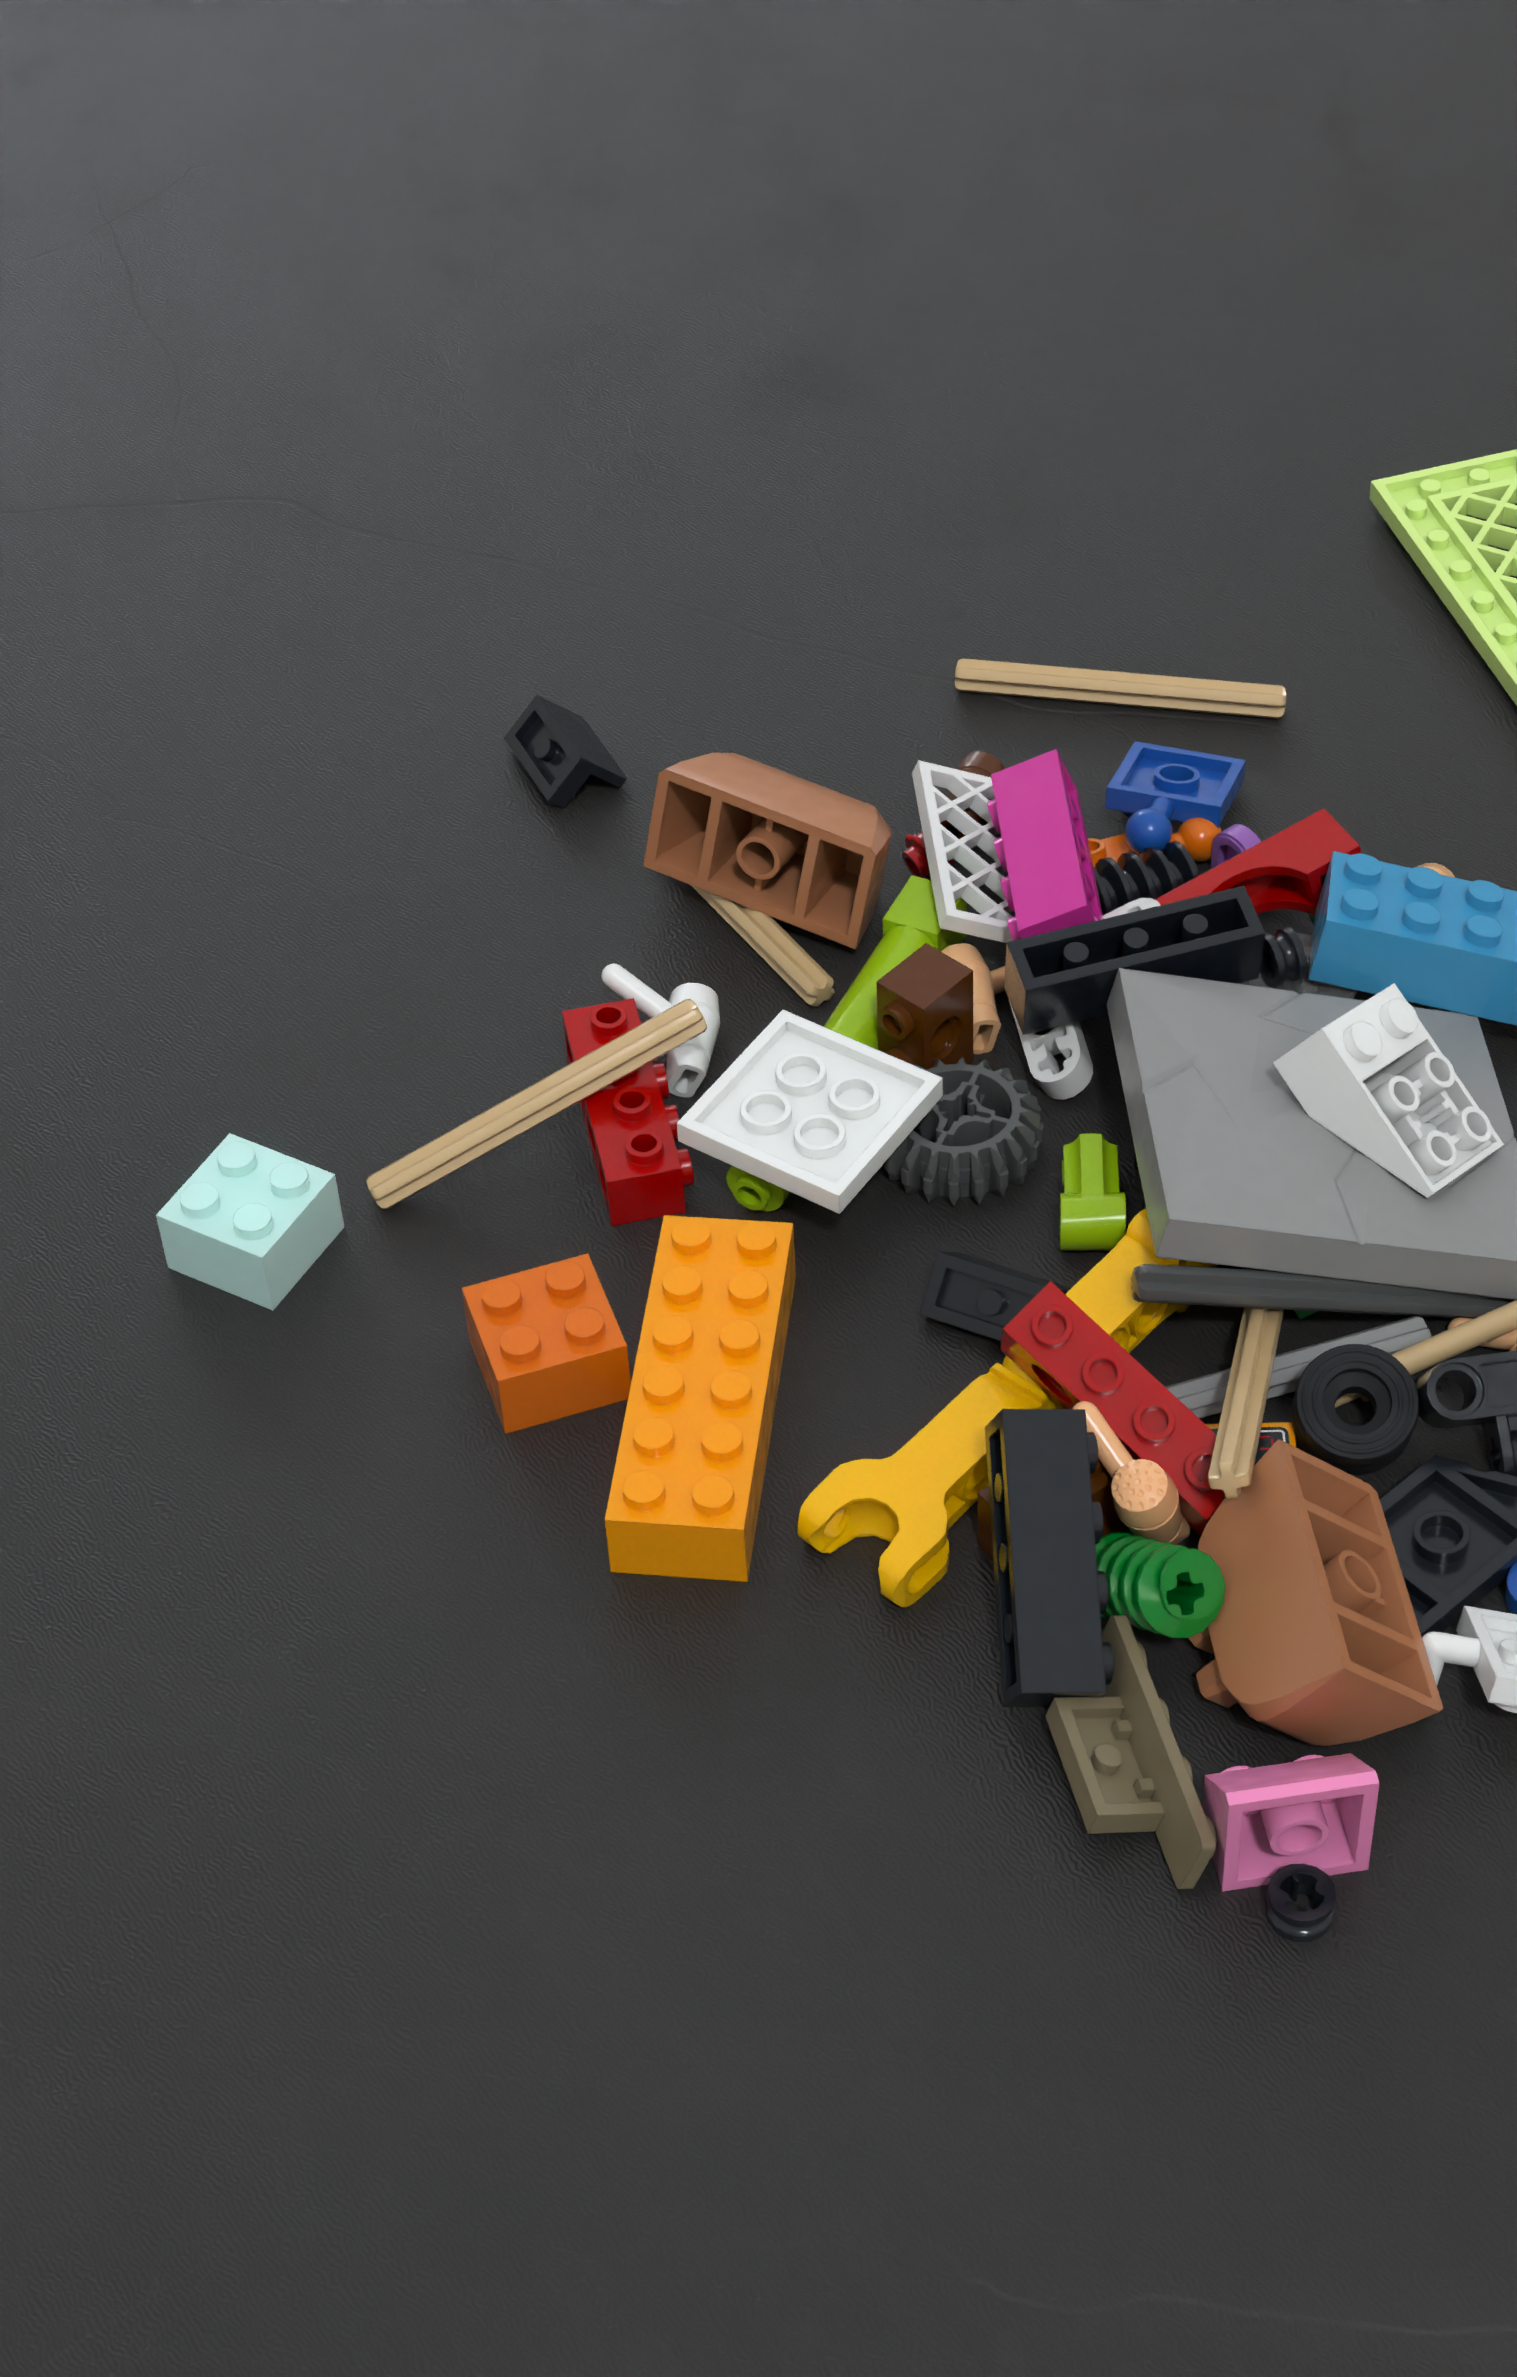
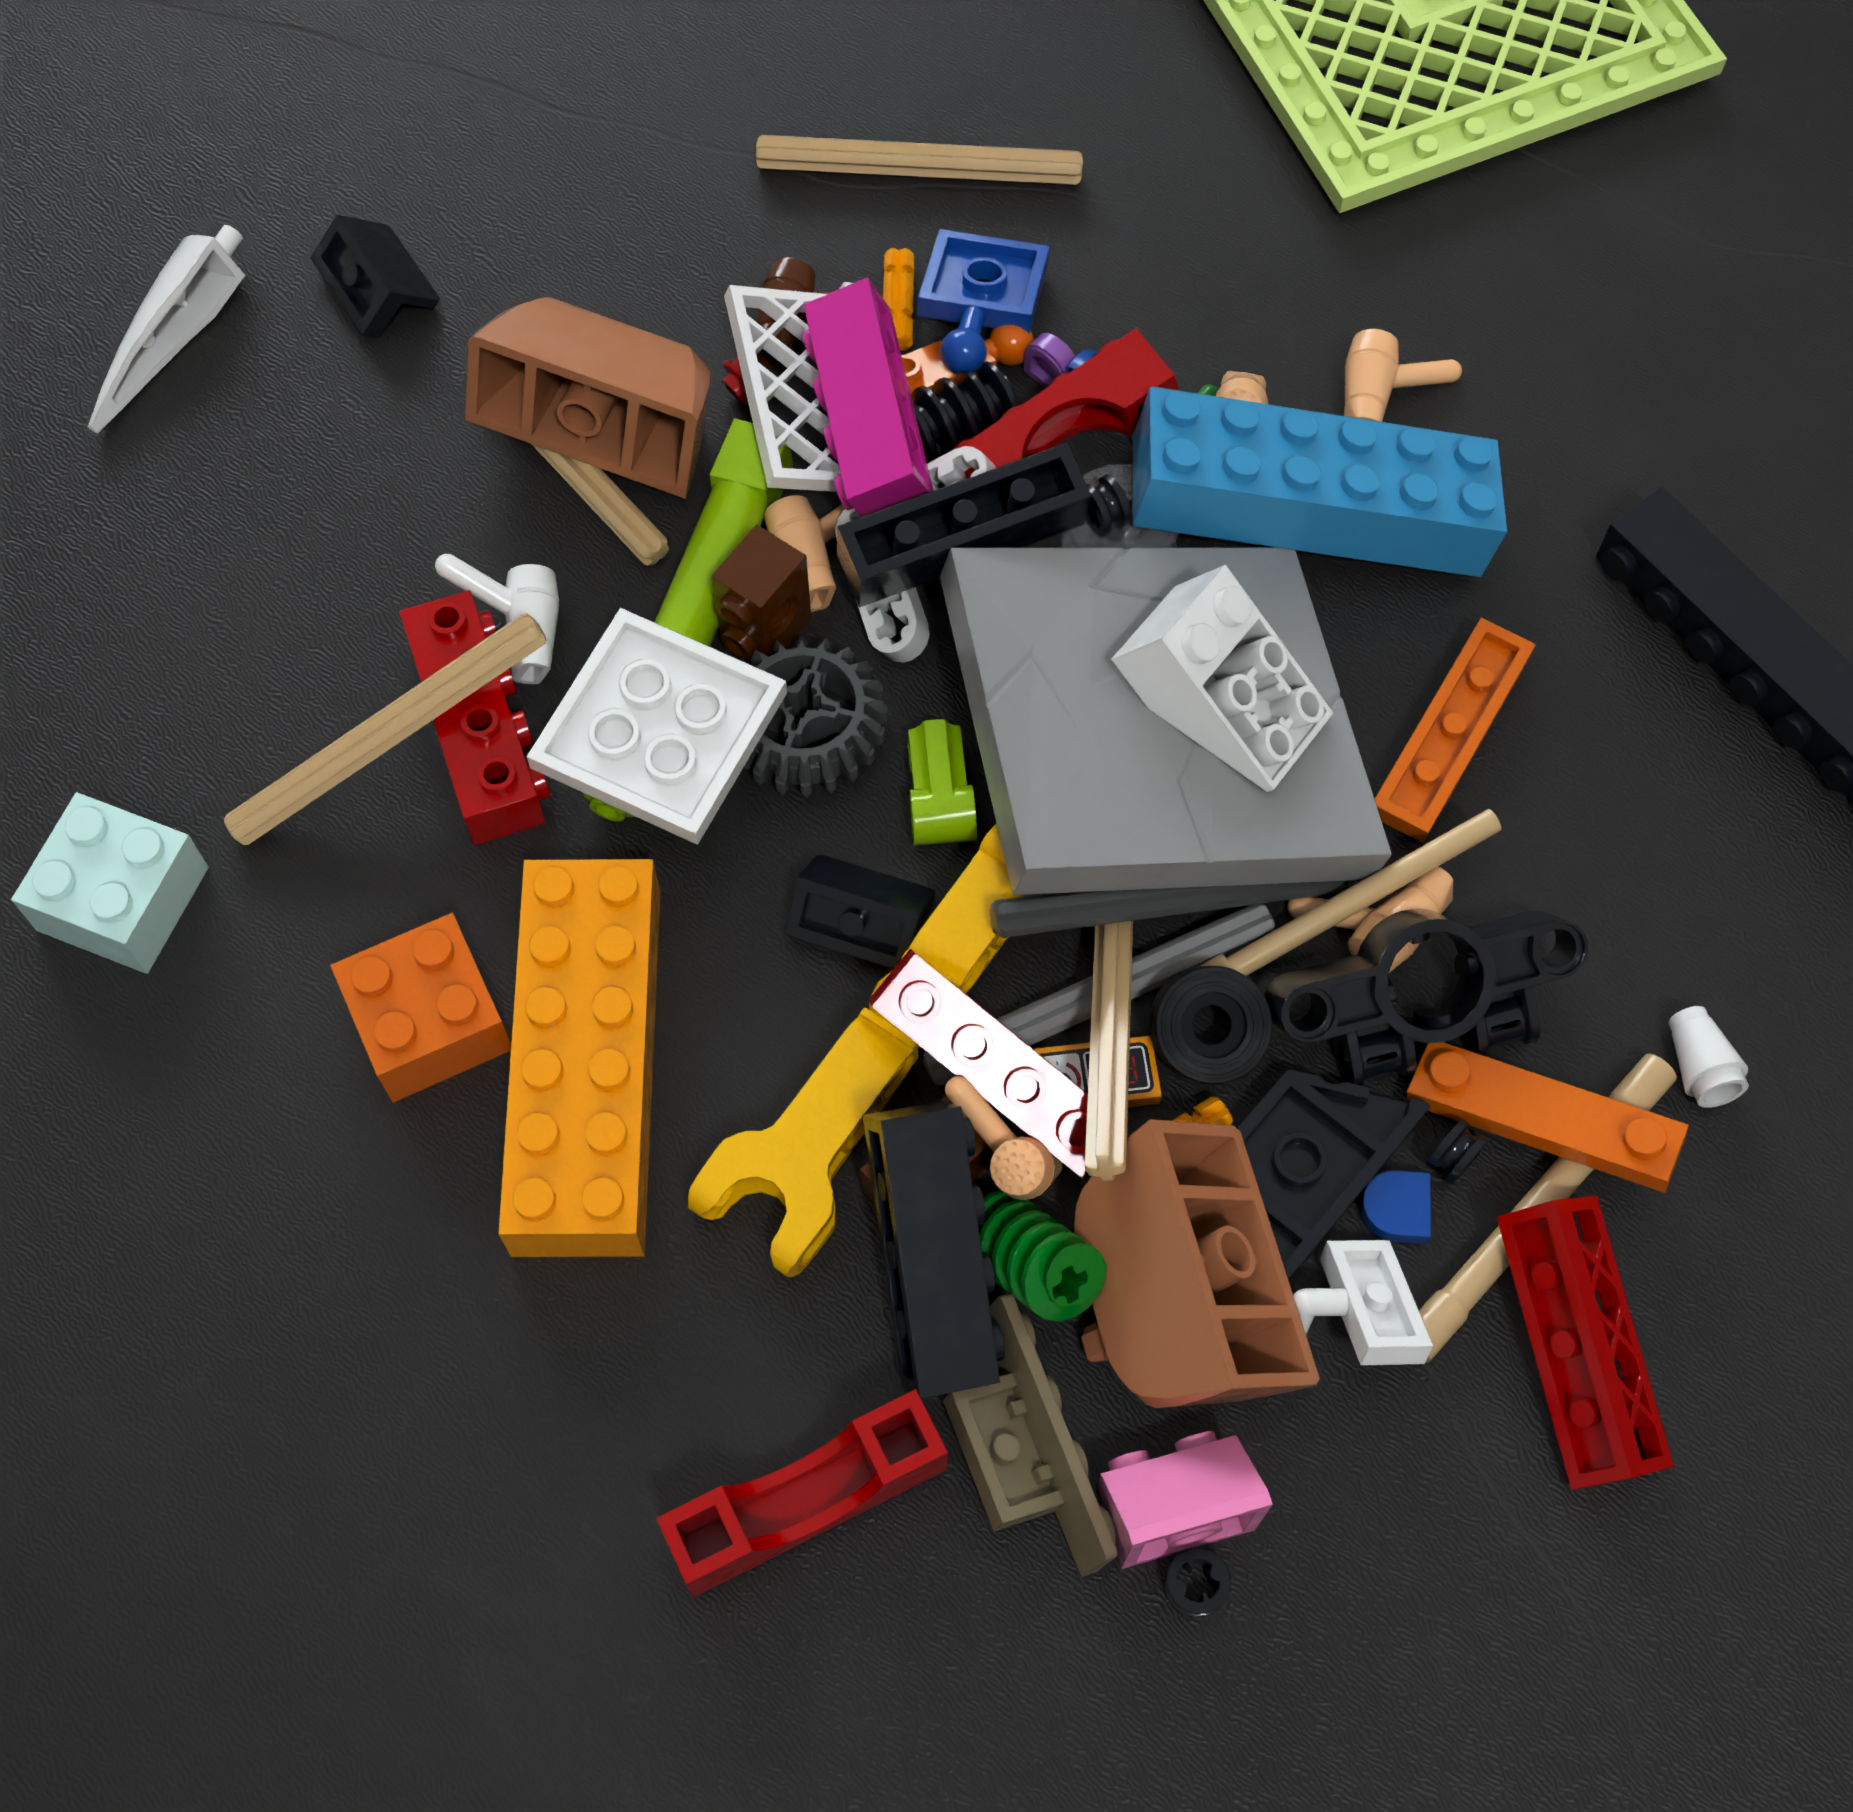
camera: 10 degrees left, 20 degrees up
(365, 773) = (175, 310): none -> white piece
(971, 1754) = (762, 1518): none -> red arch
(1090, 784) = (899, 292): none -> light orange axle

